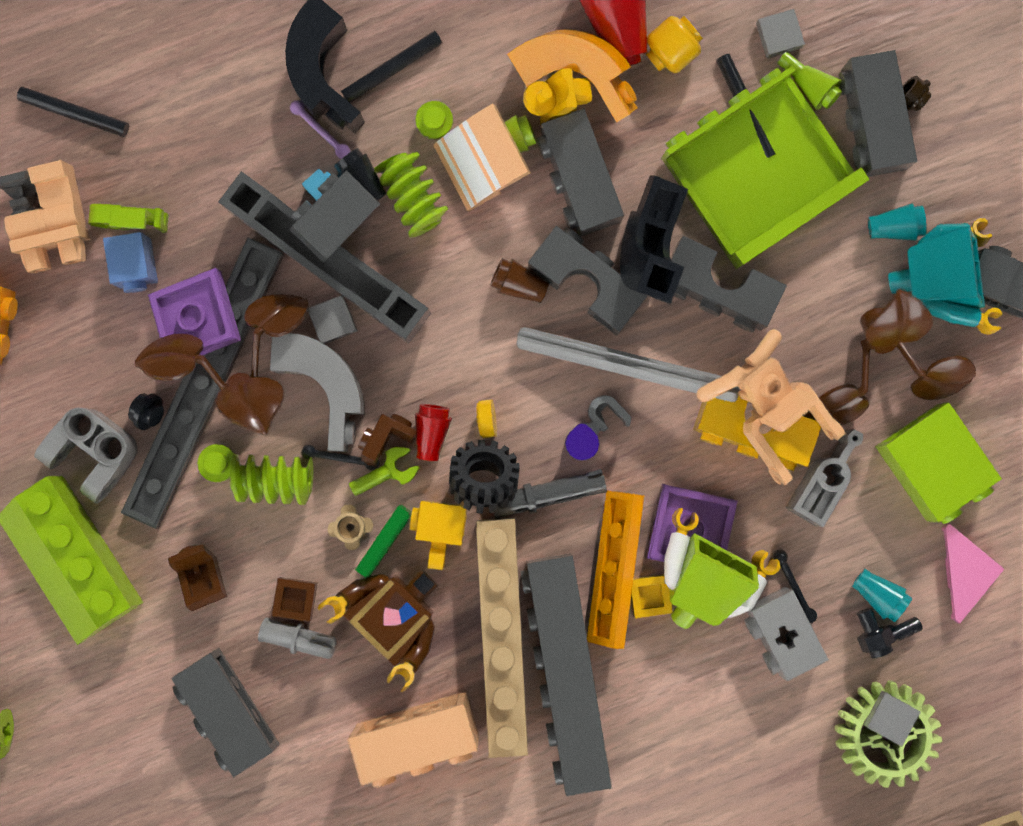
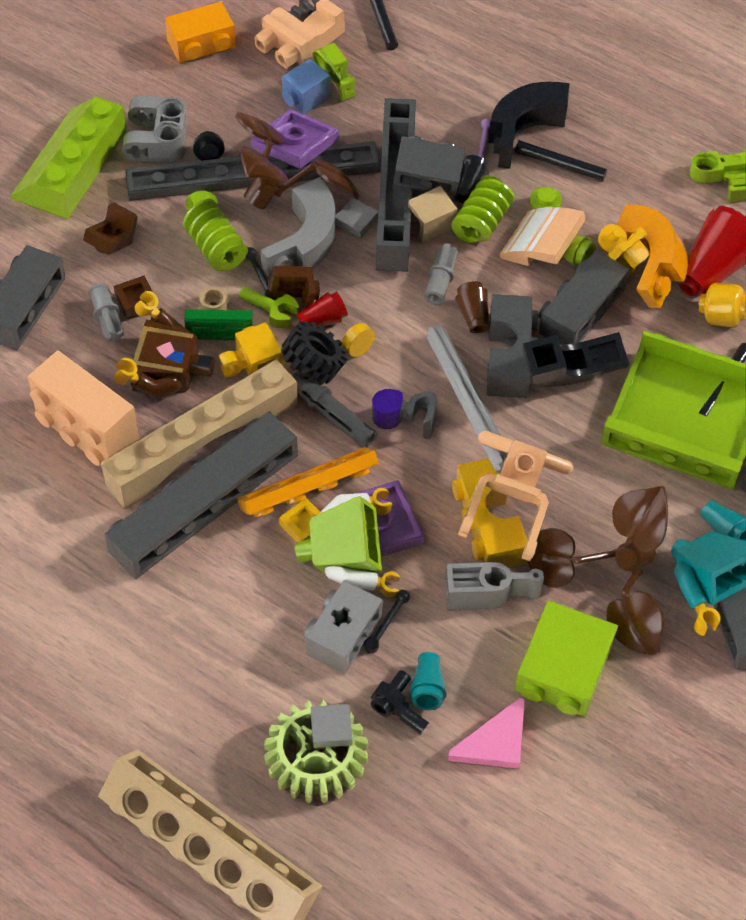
camera: 55 degrees right, 30 degrees down
(382, 245) = (434, 213): none -> tan panel
(456, 284) = (441, 274): none -> light grey axle
(749, 305) = (571, 406): dark grey arch -> none

